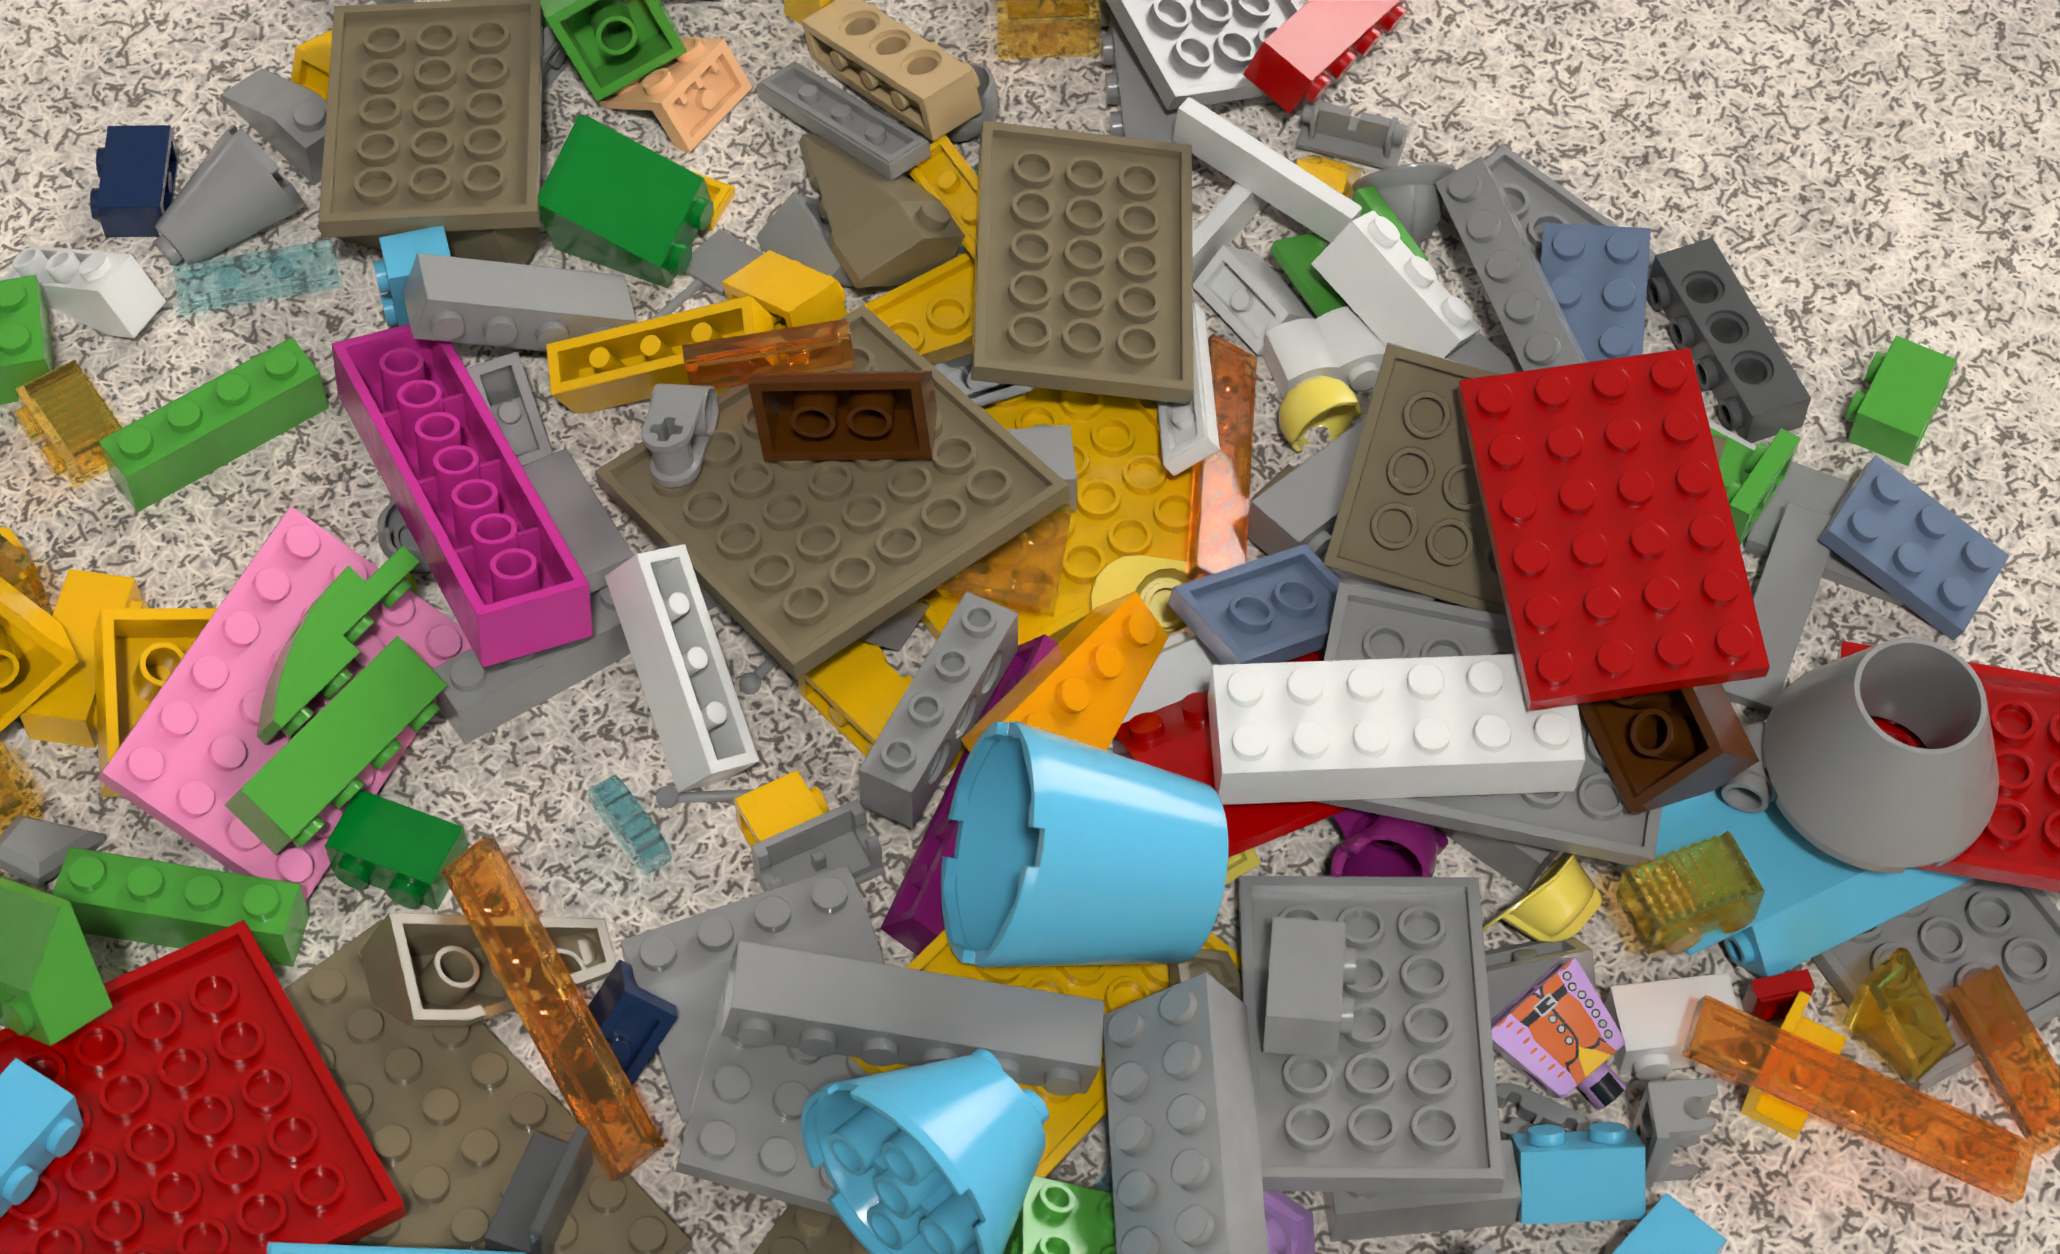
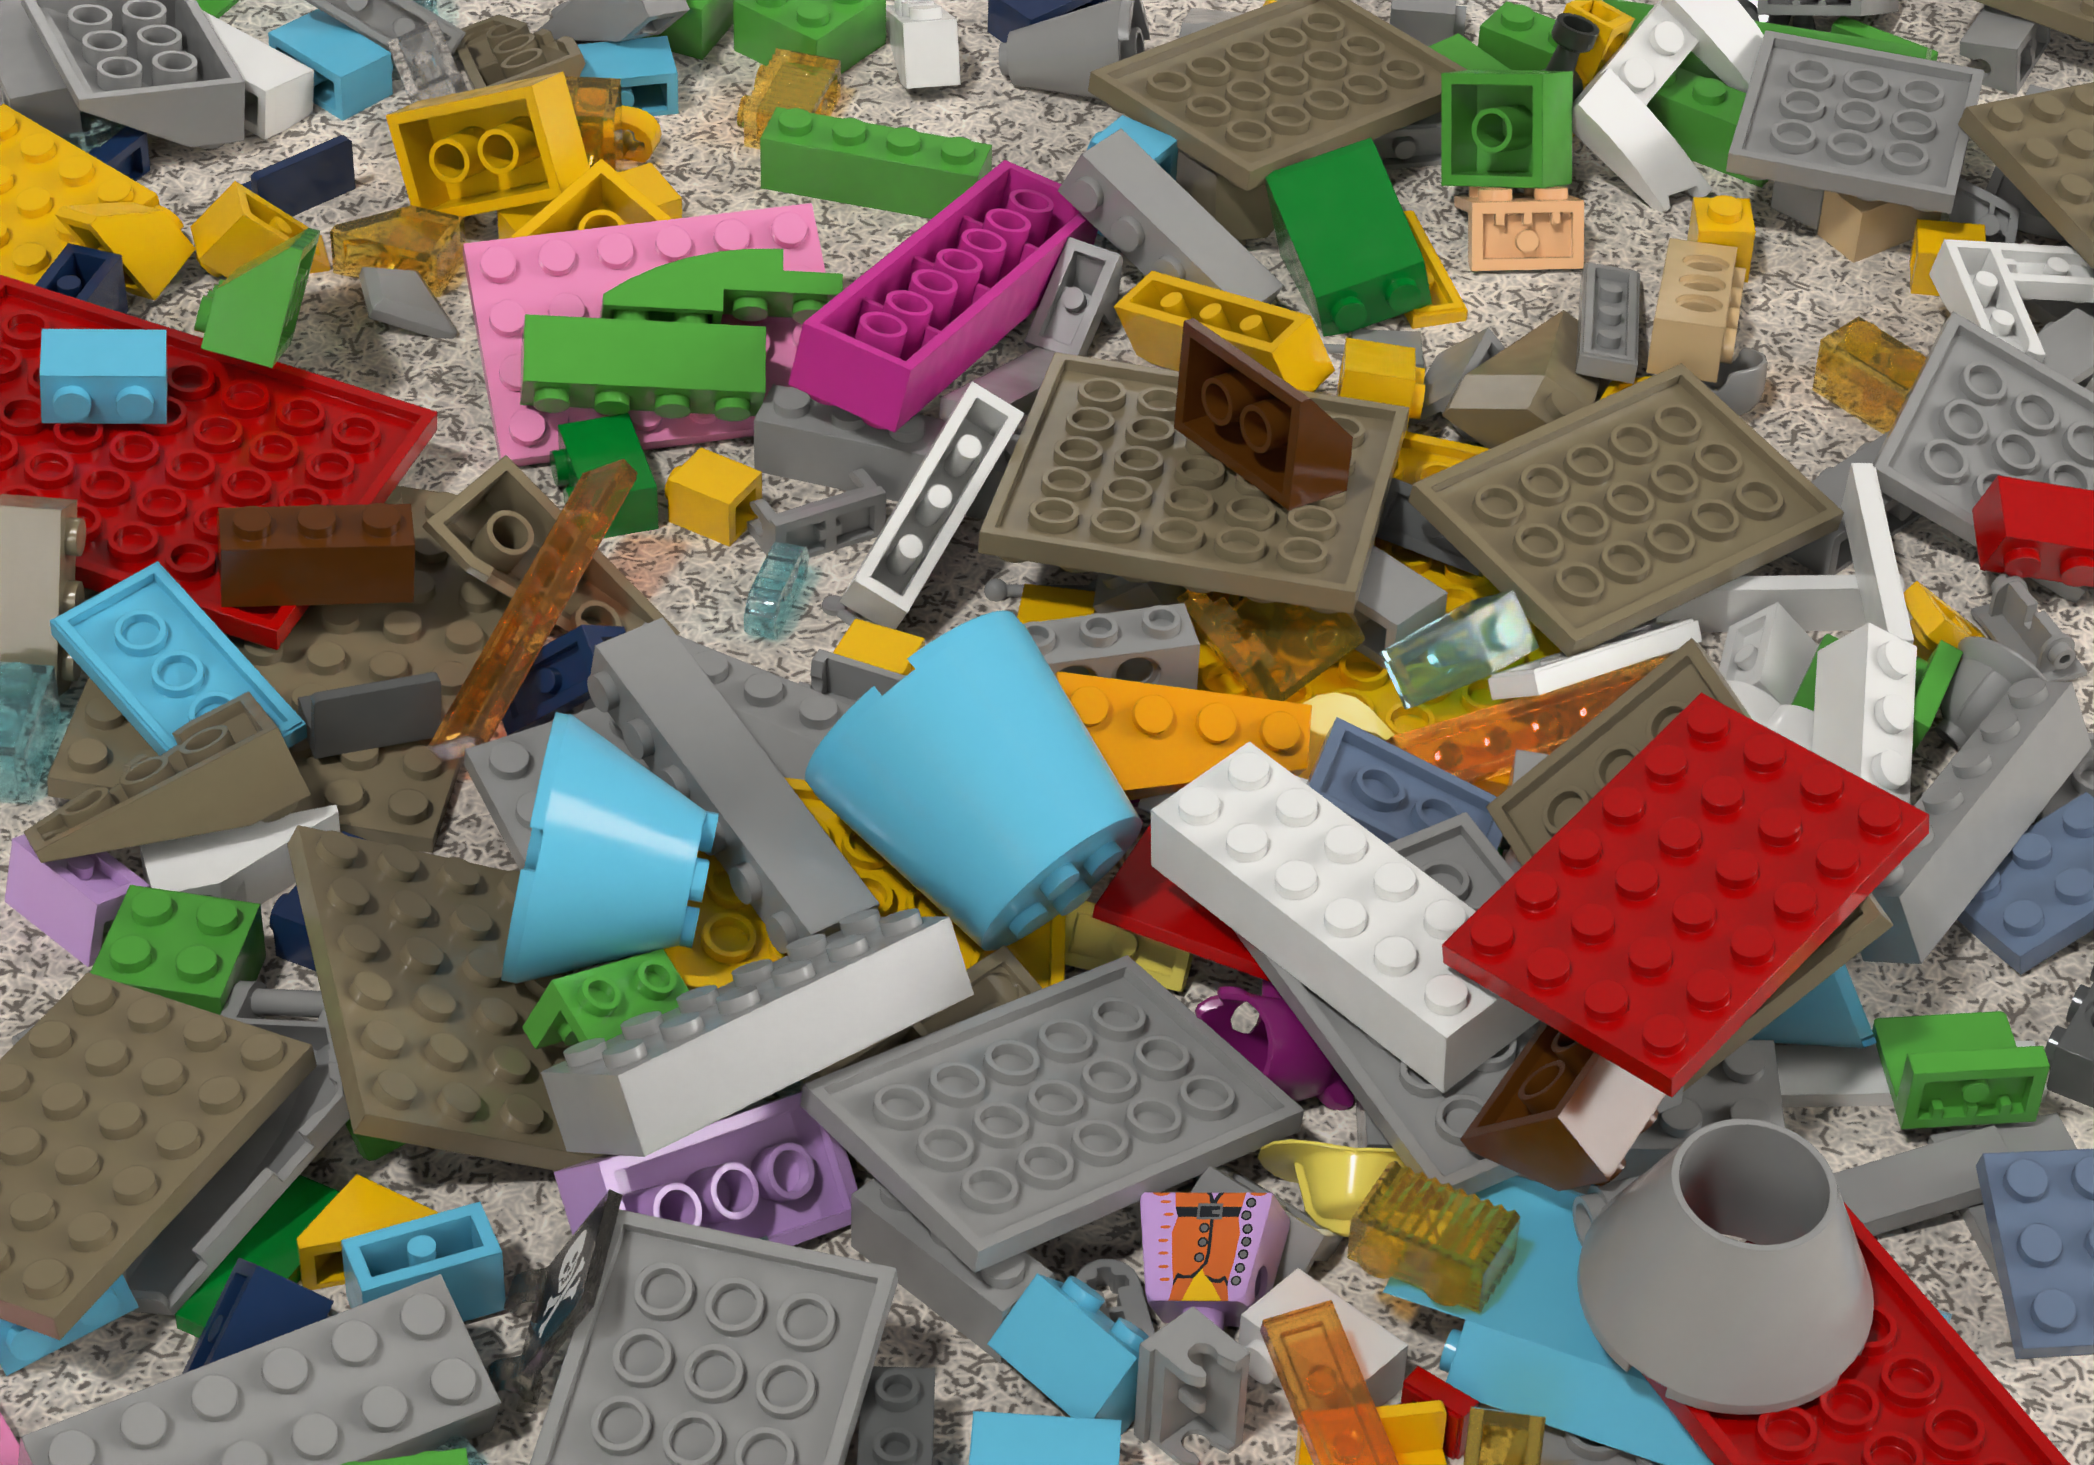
camera: 50 degrees right, 15 degrees down
(180, 903) = (412, 365): bright green brick -> none
(256, 277) = (1035, 115): clear light blue tile -> none
(351, 1116) = (316, 555): none -> reddish brown slope
(487, 794) = (713, 496): none -> yellow brick
(574, 741) = (824, 523): none -> light grey hinge
(679, 431) = (1132, 358): light grey piece -> none
(787, 350) = (1310, 374): clear orange tile -> none
(1120, 456) = (1459, 648): none -> clear light blue slope
(1307, 988) = (1032, 1022): light grey brick -> none

